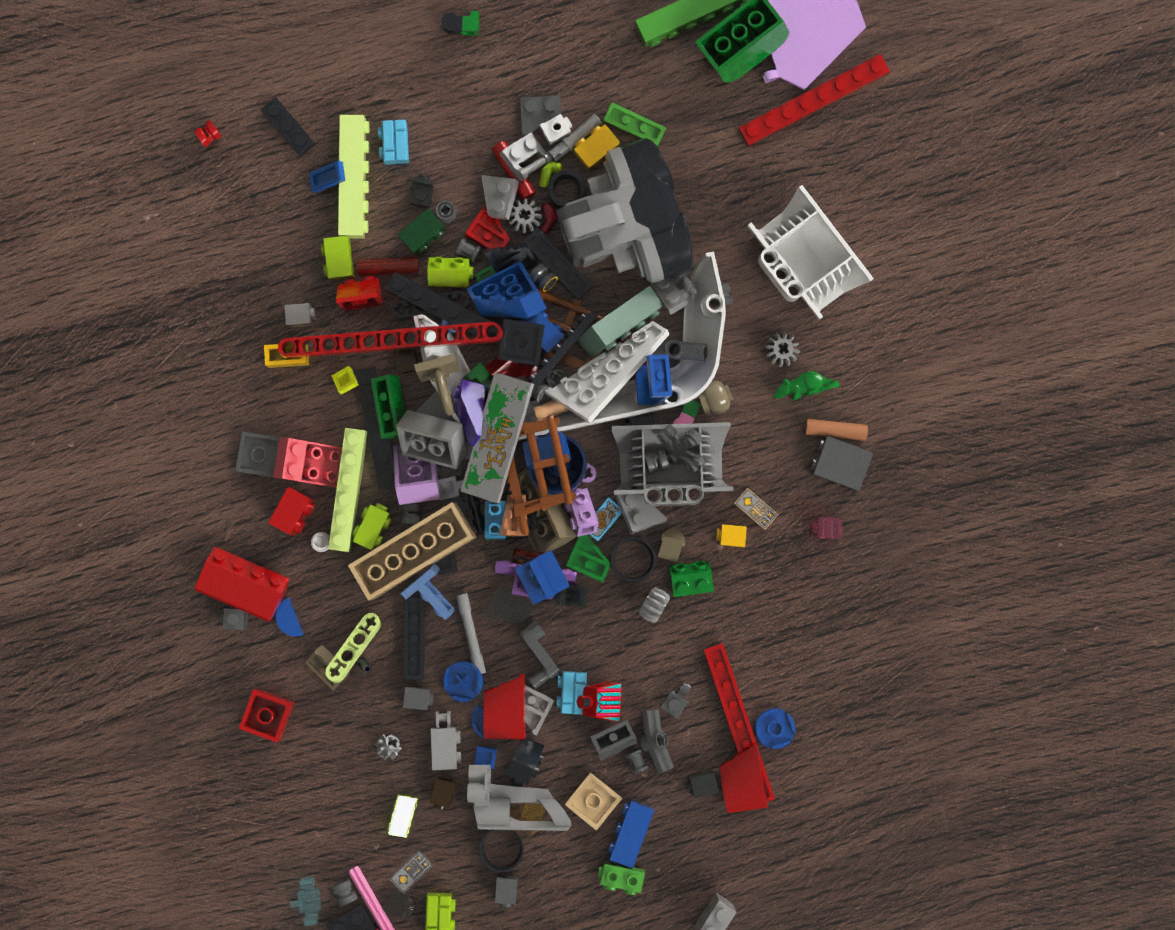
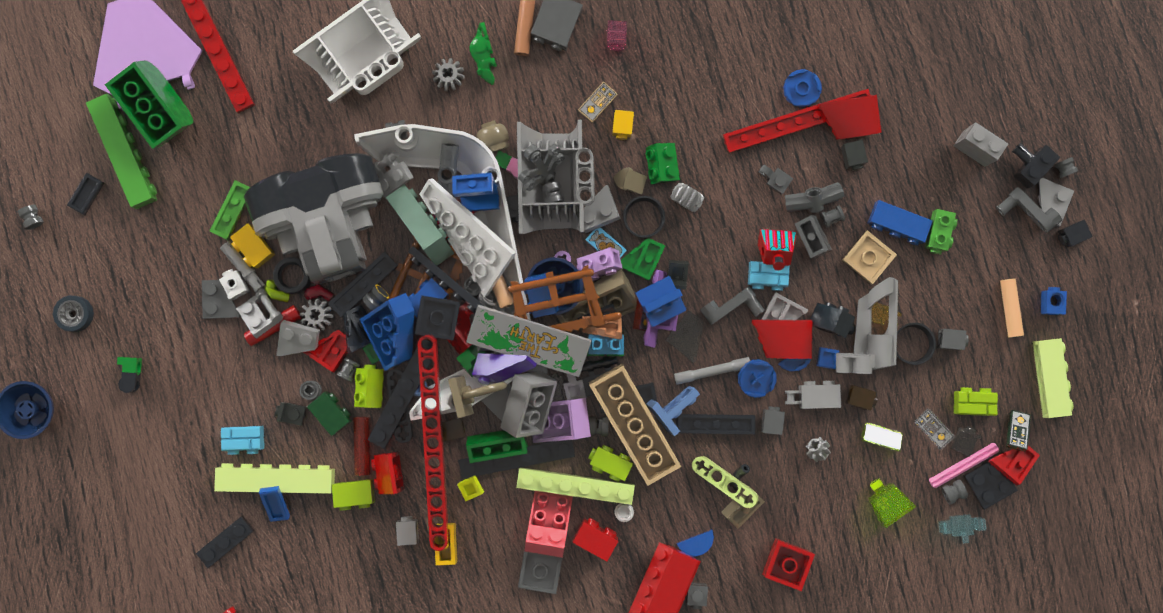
camera: 85 degrees left, 0 degrees up
(332, 822) = (889, 503): none -> clear neon green torso

